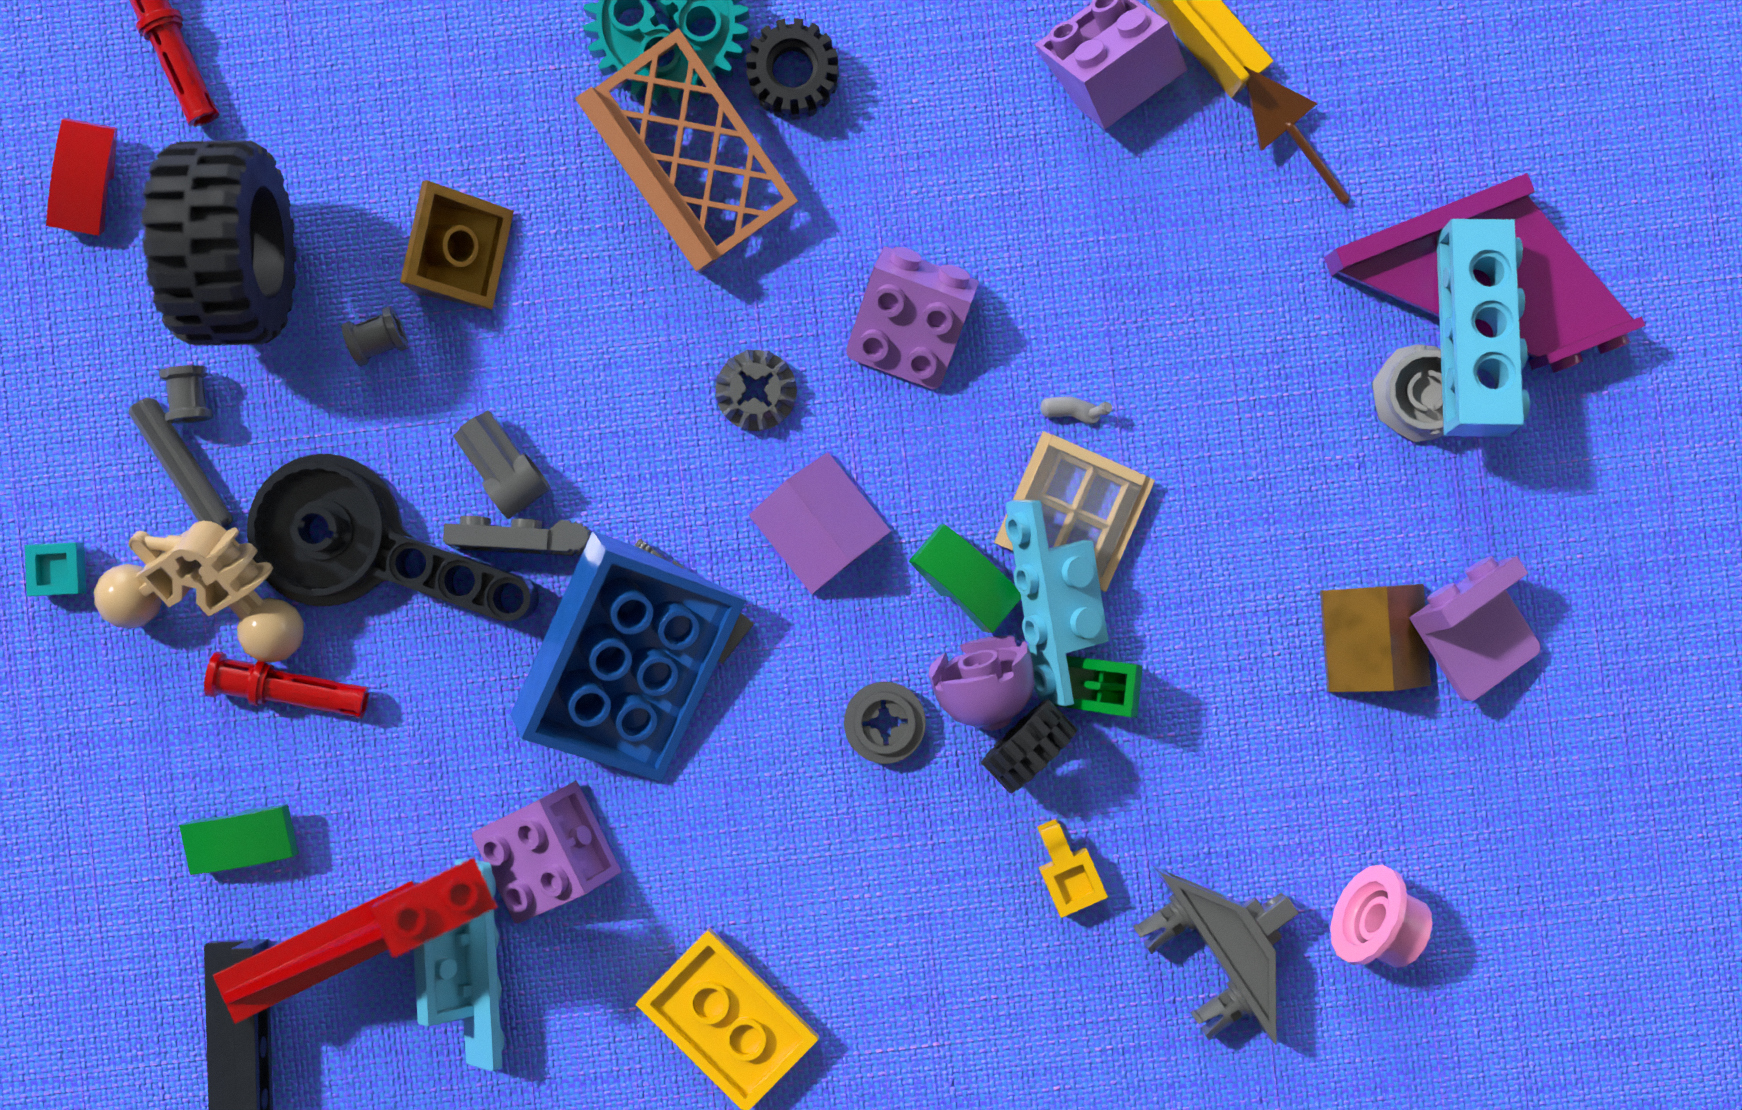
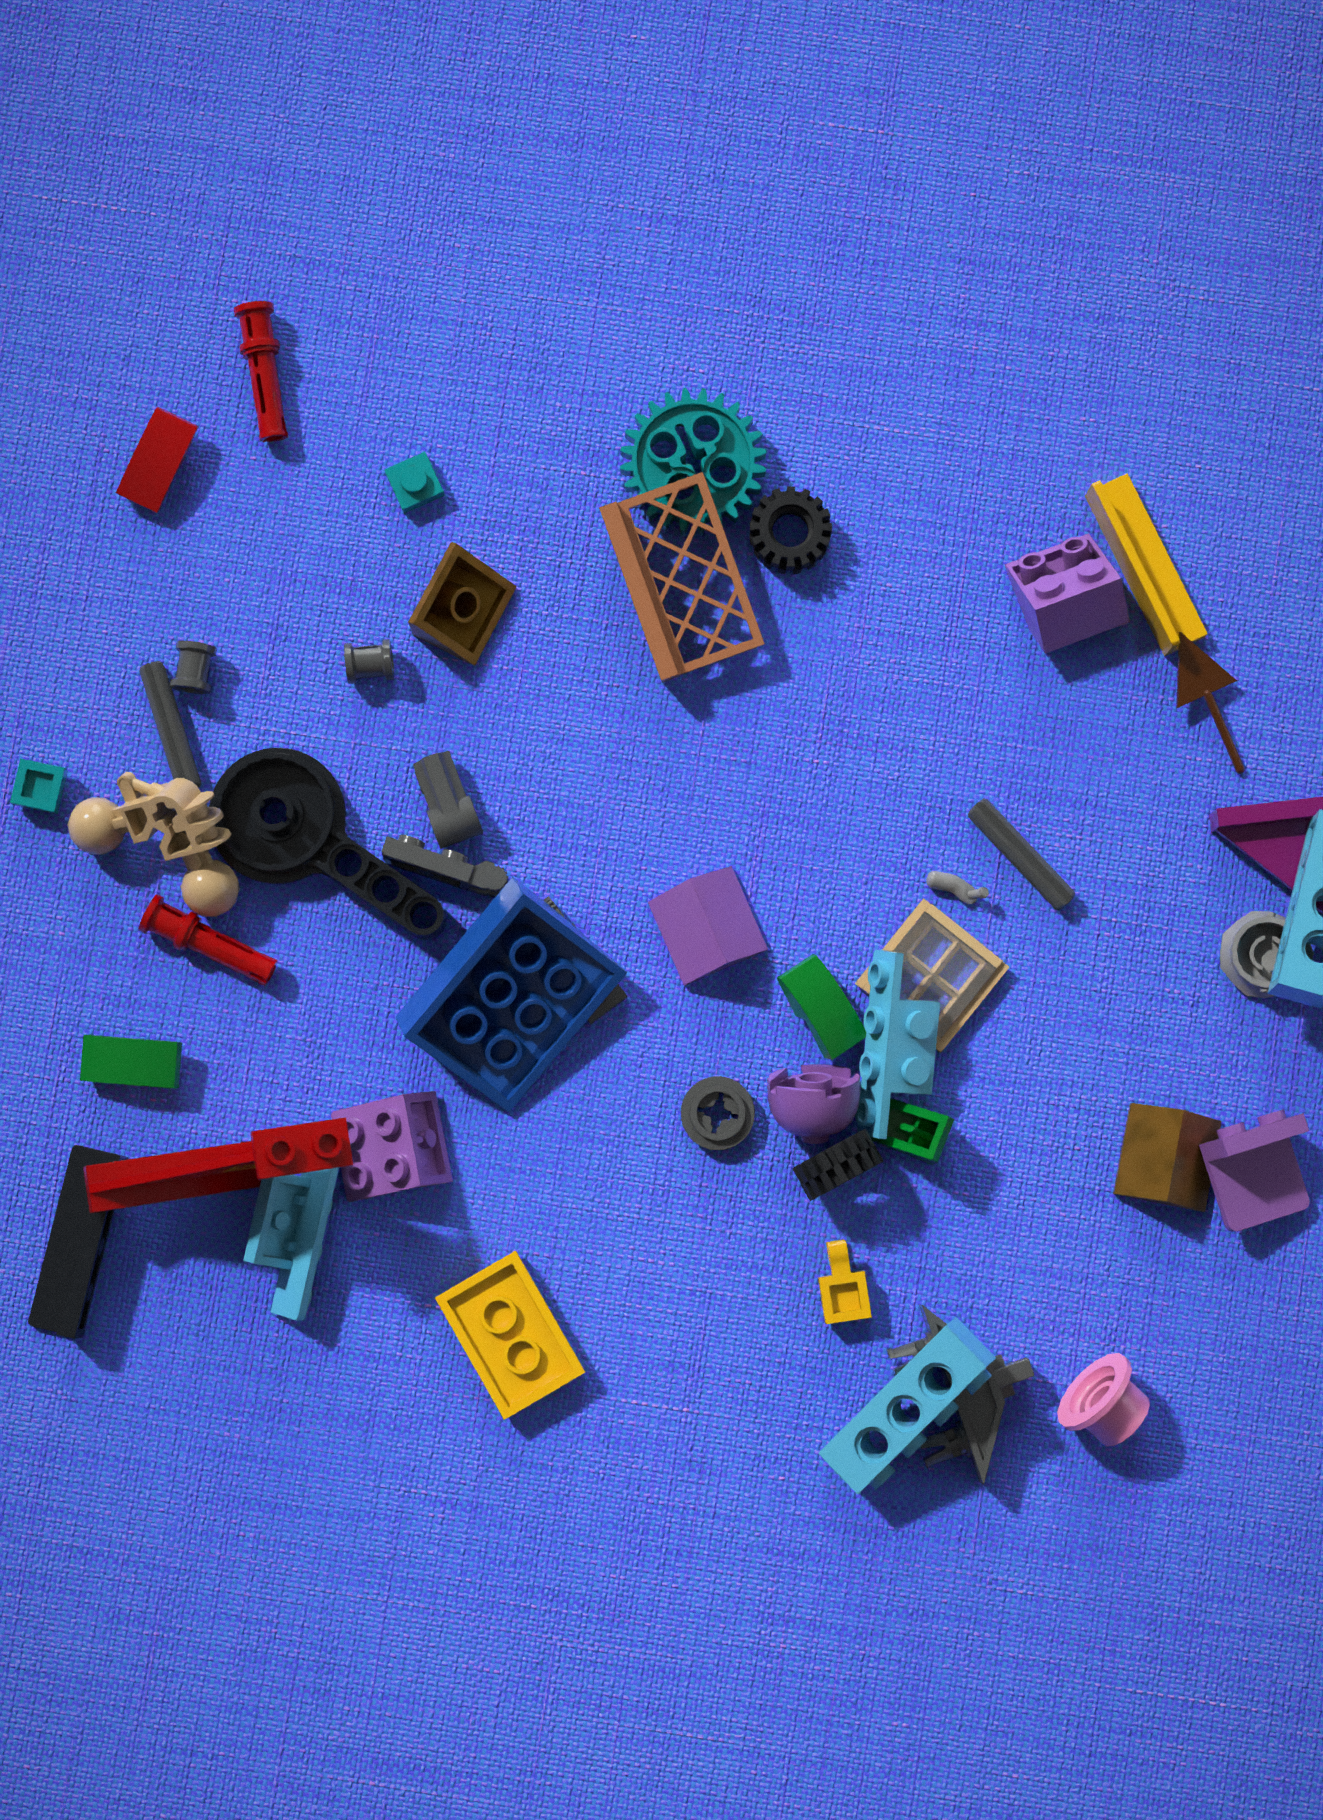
camera: 20 degrees right, 5 degrees down
(219, 242) = (269, 550): black tyre -> none
(371, 126) = (414, 482): none -> teal plate
(756, 414) = (677, 816): dark grey gear -> none
(911, 316) = (835, 769): medium lavender bracket -> none
(1135, 354) = (1021, 854): none -> dark grey axle
(1205, 917) = (851, 1451): none -> medium azure brick

